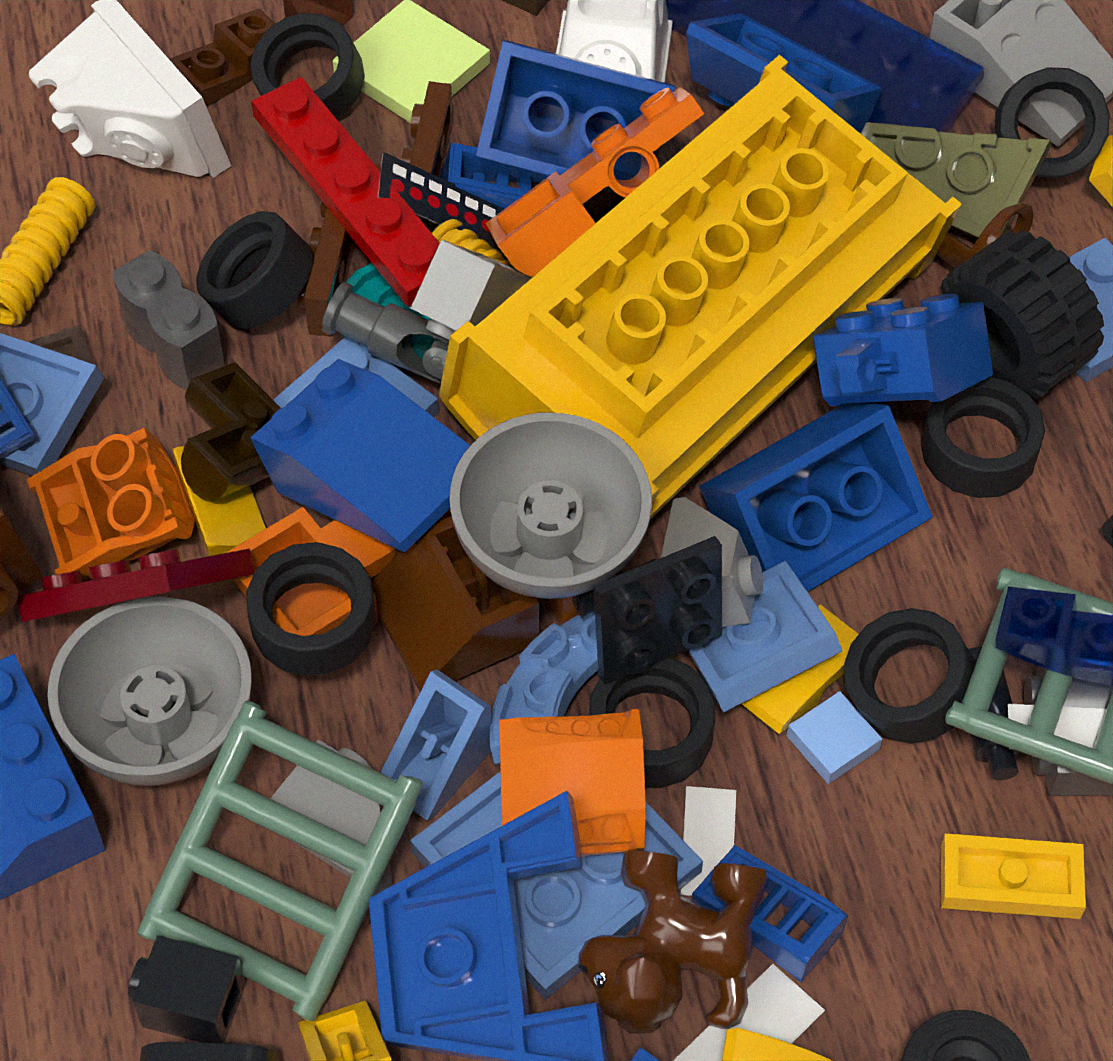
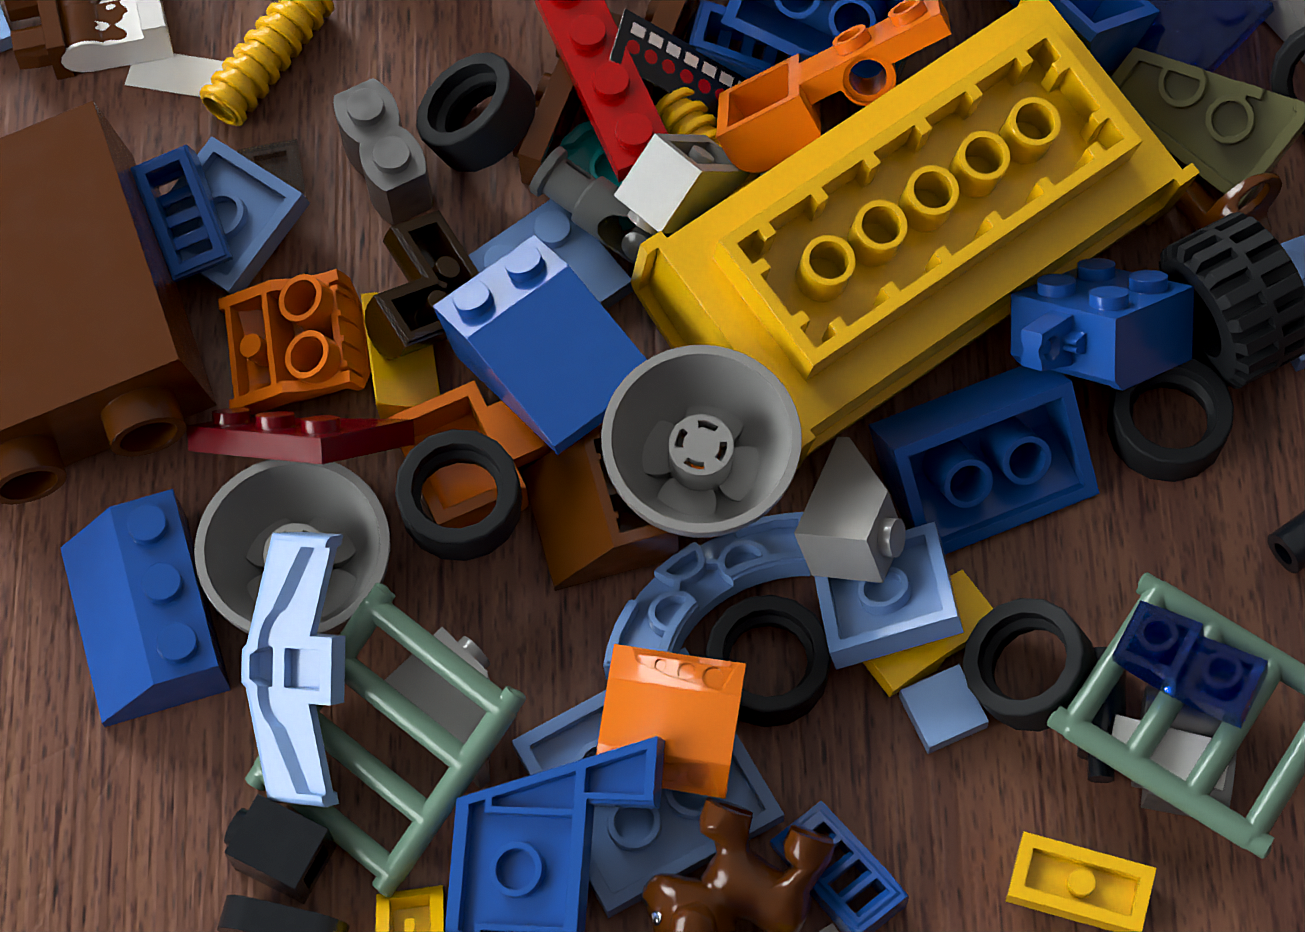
camera: 15 degrees right, 10 degrees up
(173, 797) = (294, 668): none -> light blue plate
(441, 742) = (555, 651): medium blue slope -> none
(656, 609) = (788, 560): black plate -> none
(708, 828) = (801, 777): white sticker -> none

